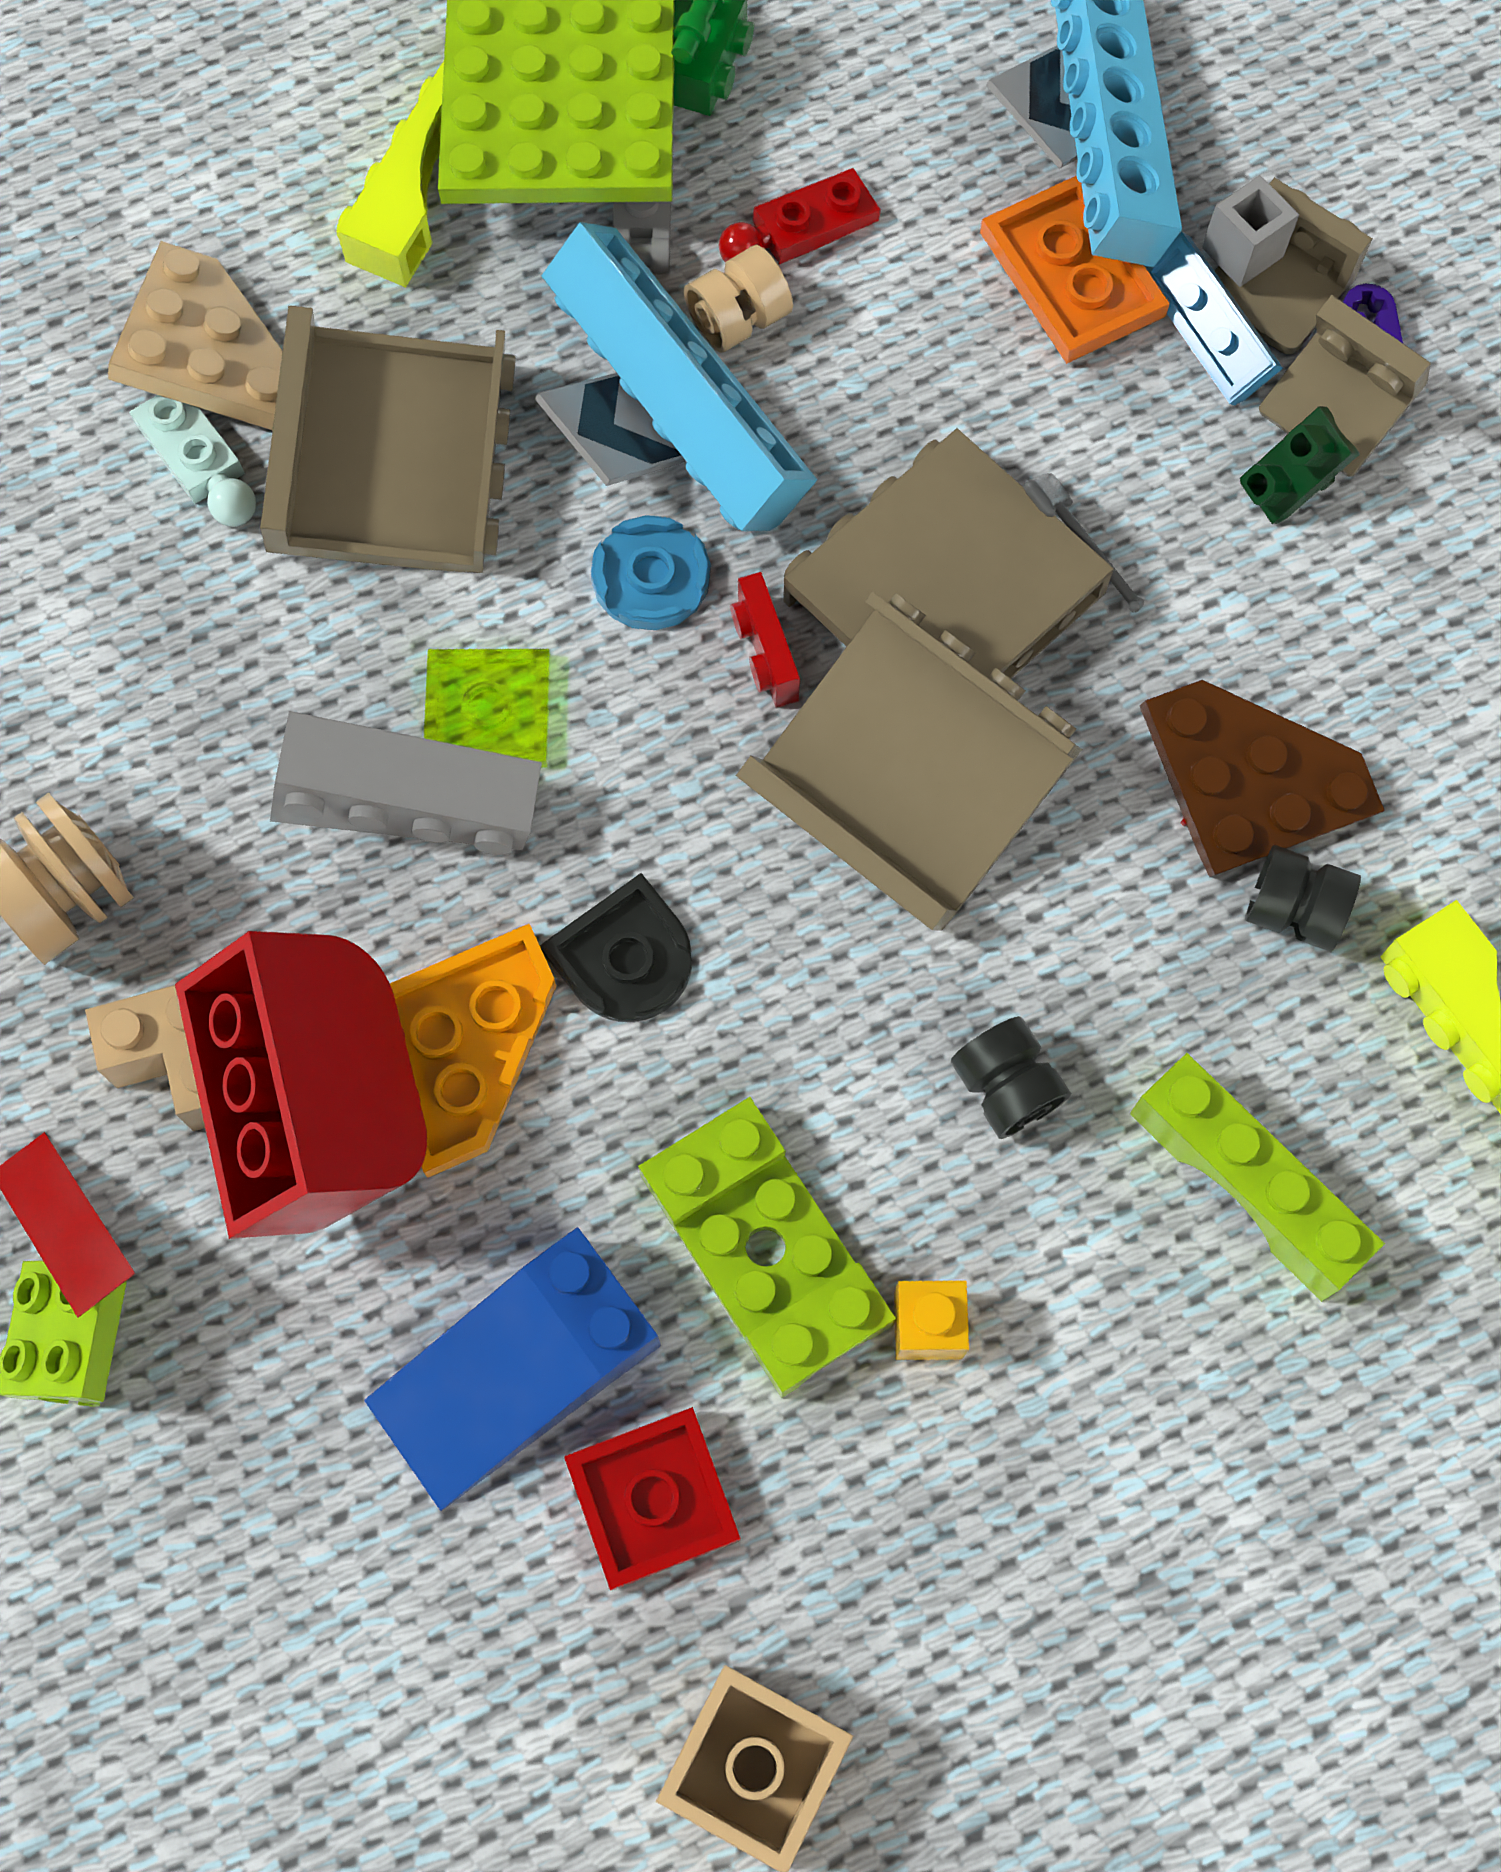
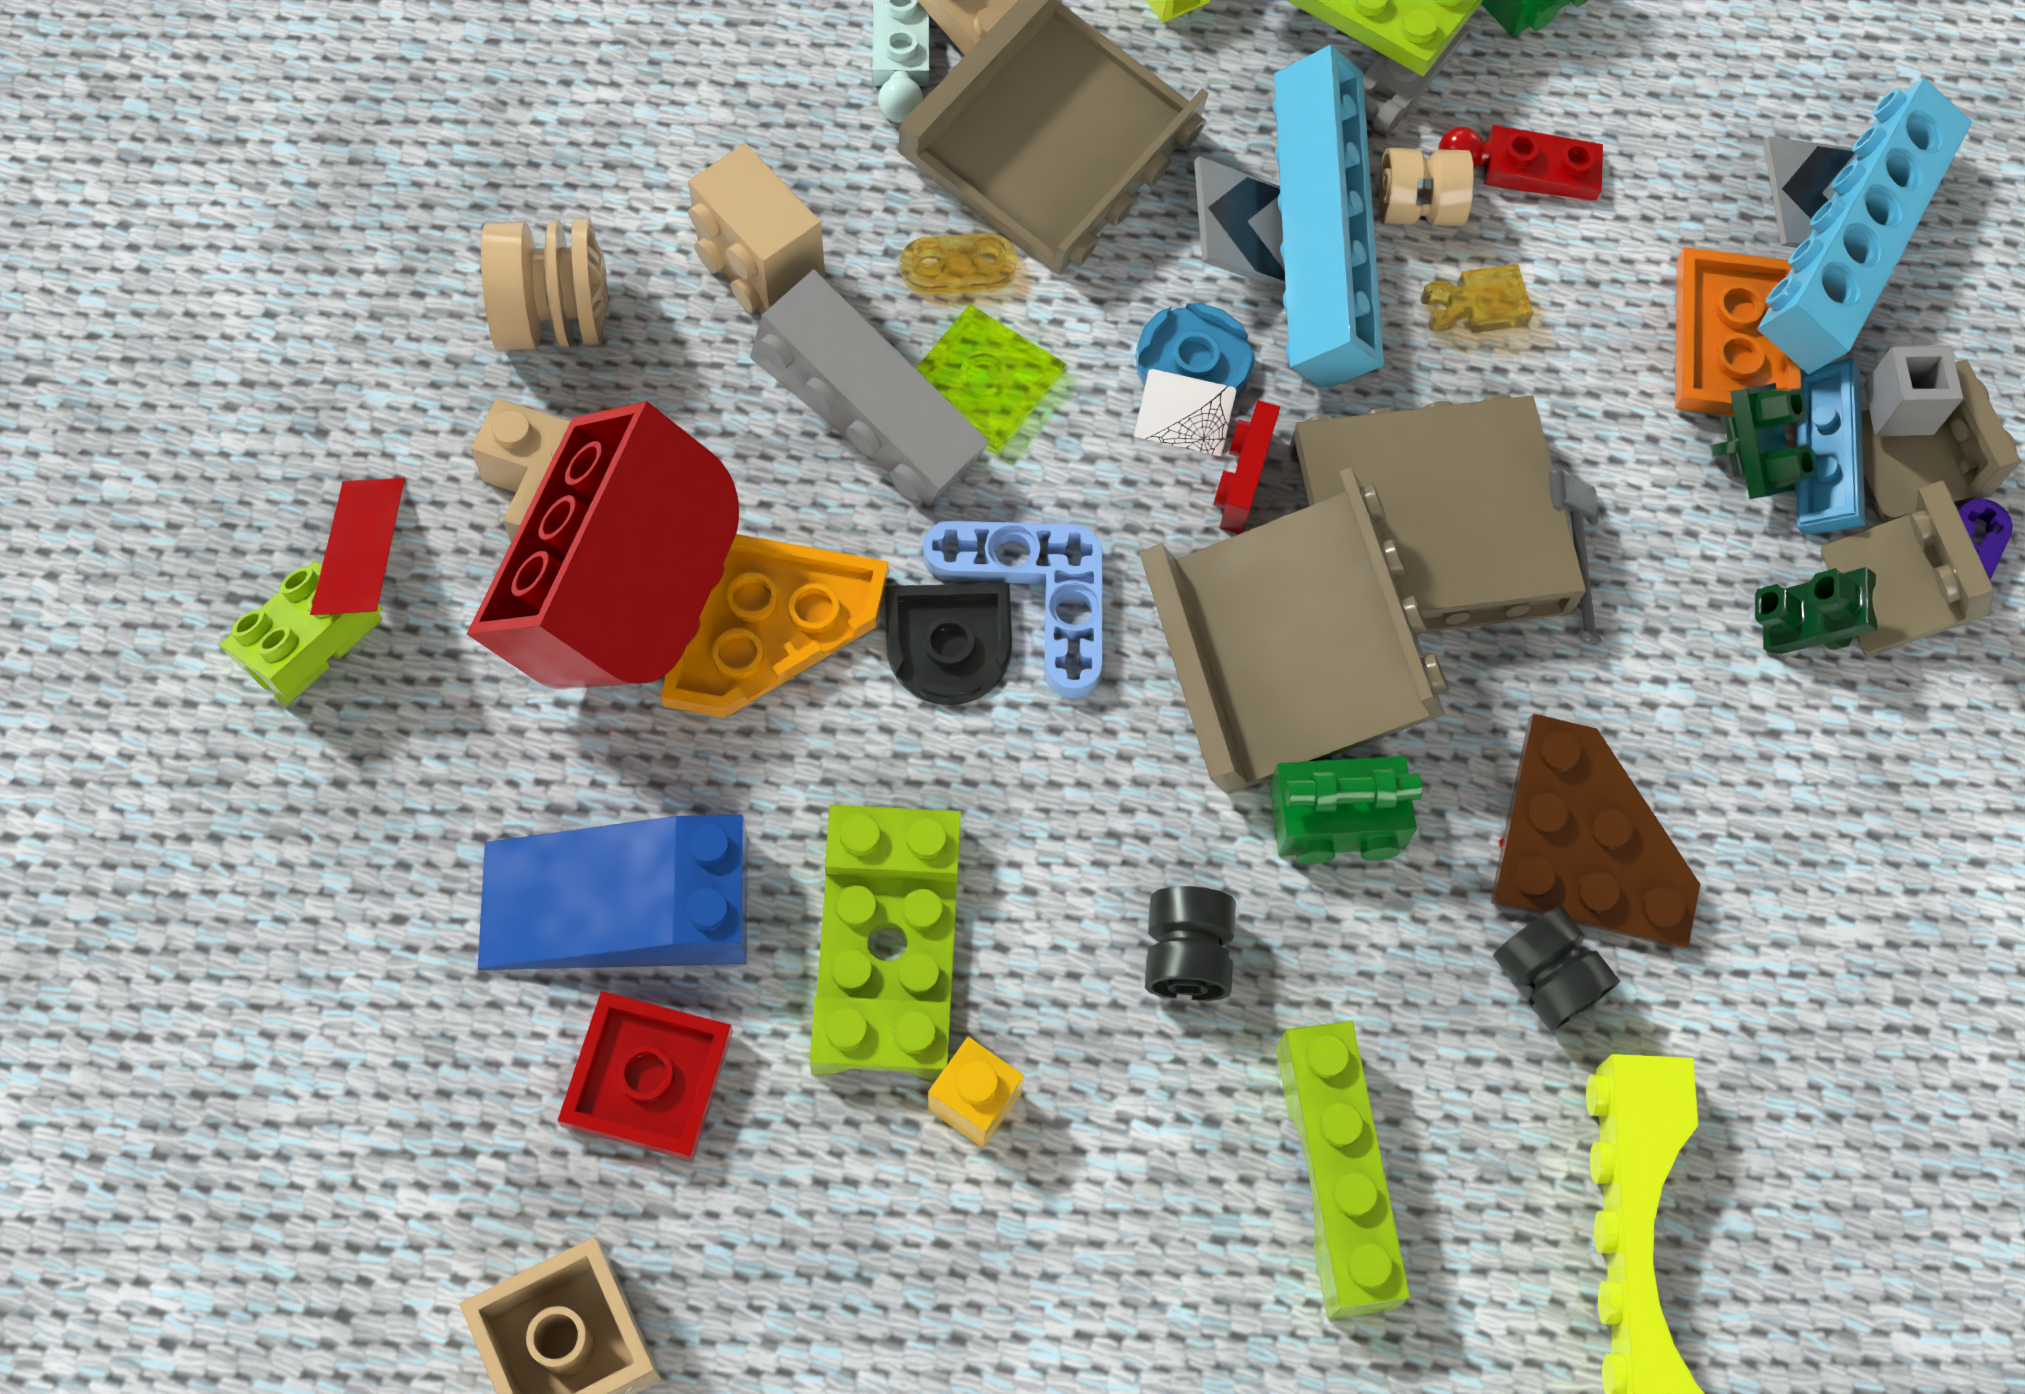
camera: 30 degrees right, 5 degrees down
(203, 708) = (753, 229): none -> tan brick
(394, 620) = (958, 264): none -> clear yellow plate
(678, 626) = (1185, 412): none -> white sticker
(682, 844) = (1060, 581): none -> light blue beam
(852, 365) = (1485, 297): none -> clear yellow plate
(1049, 879) = (1344, 808): none -> green brick
(1155, 352) = (1759, 441): none -> dark green hips

